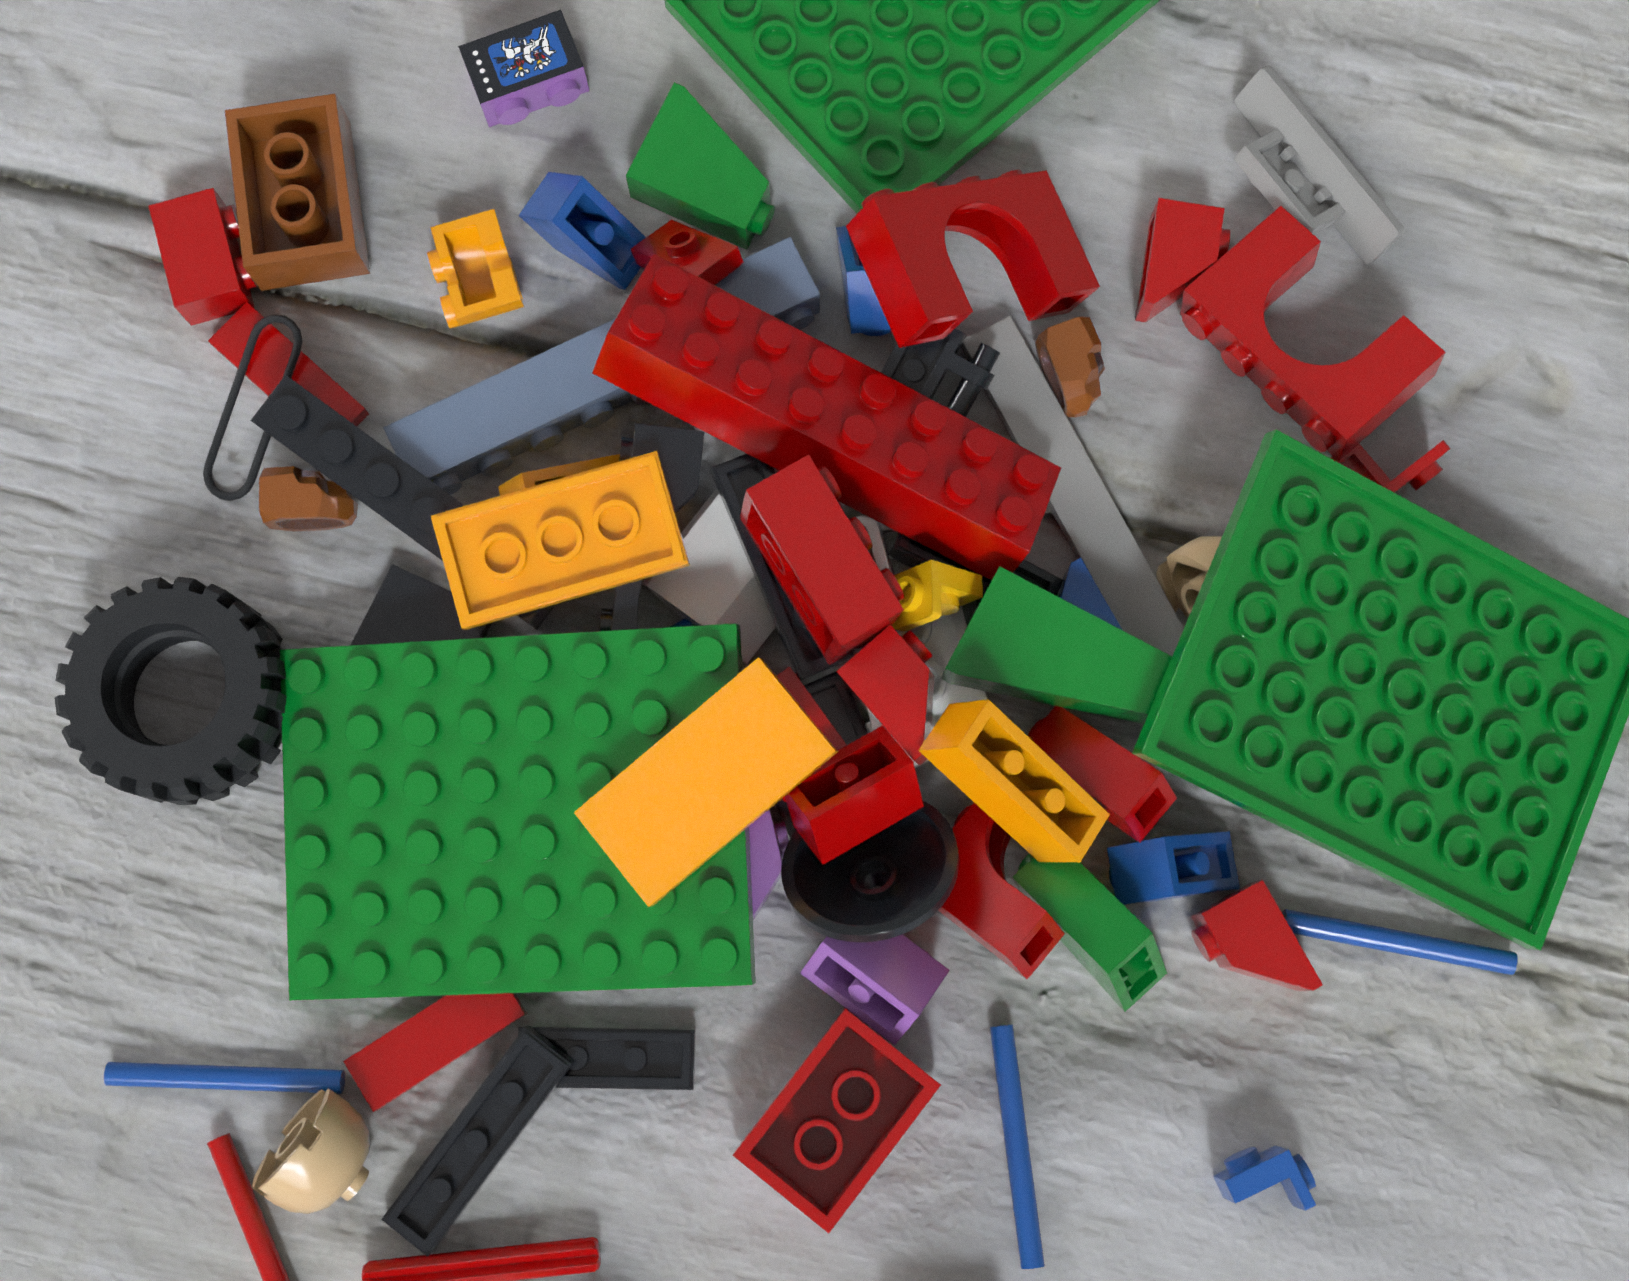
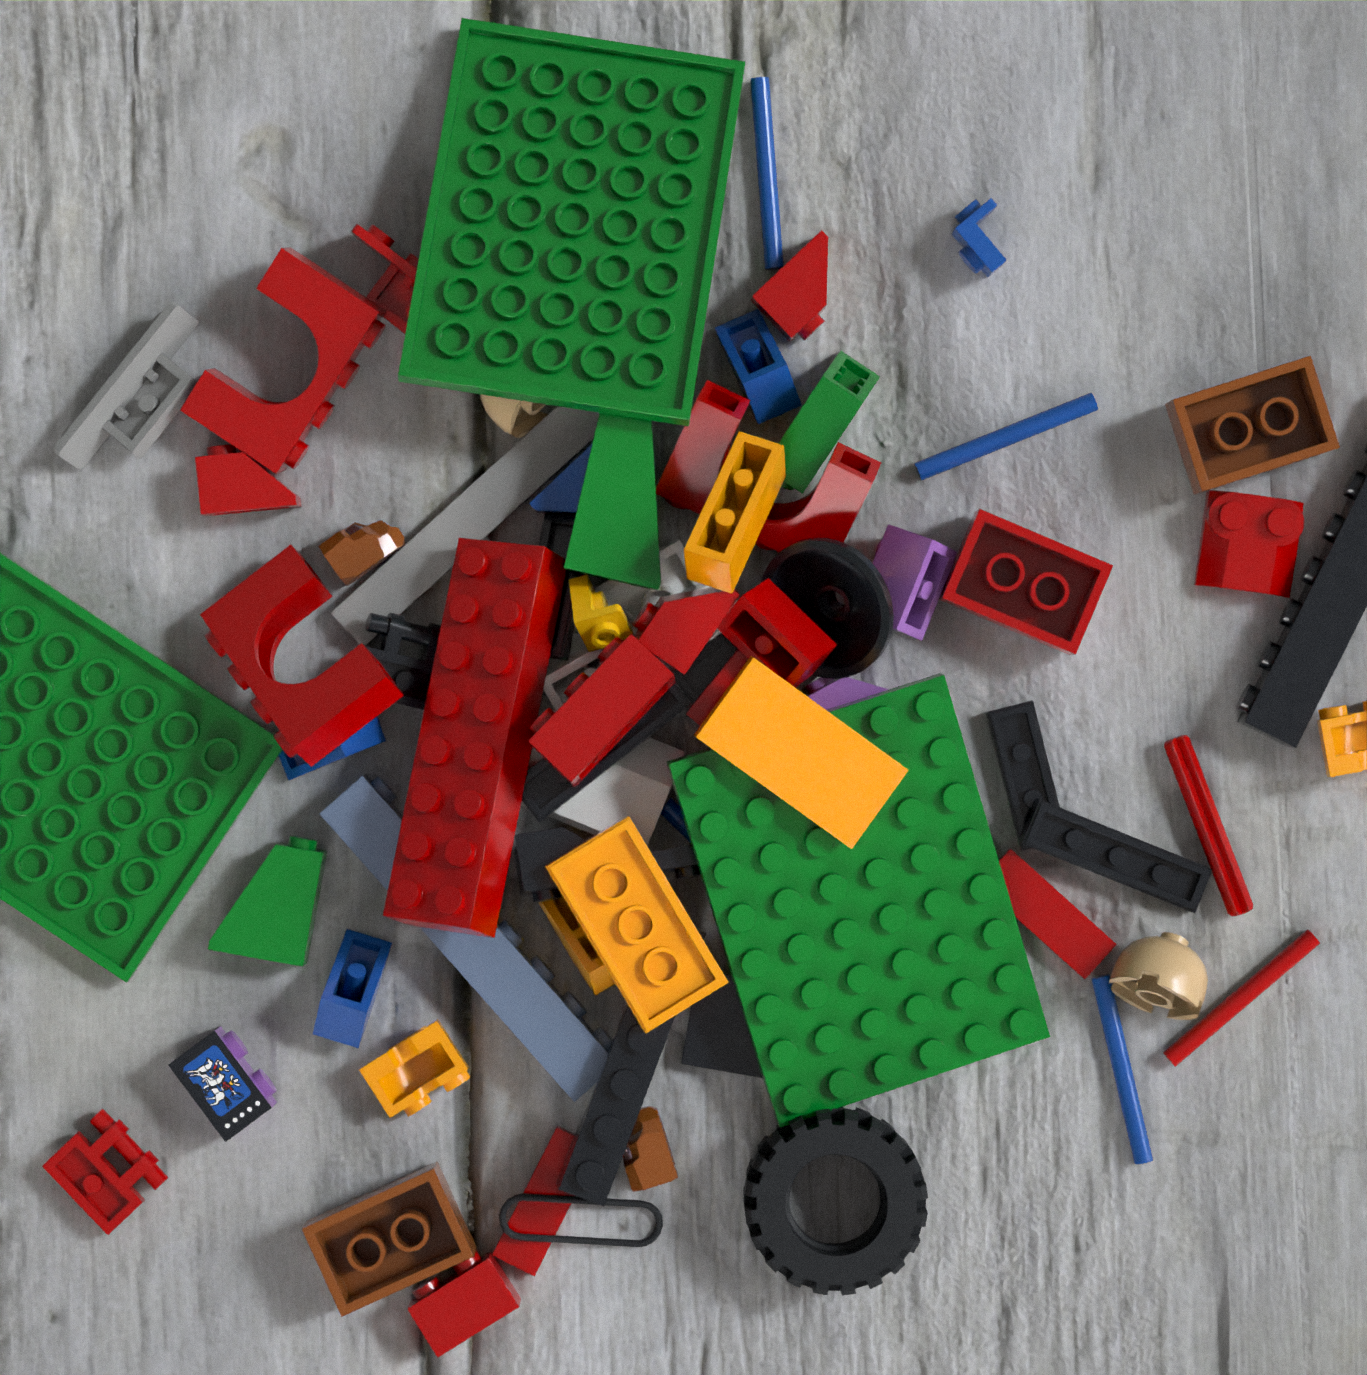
camera: 100 degrees left, 10 degrees up
(691, 250) = (357, 896): red plate -> none

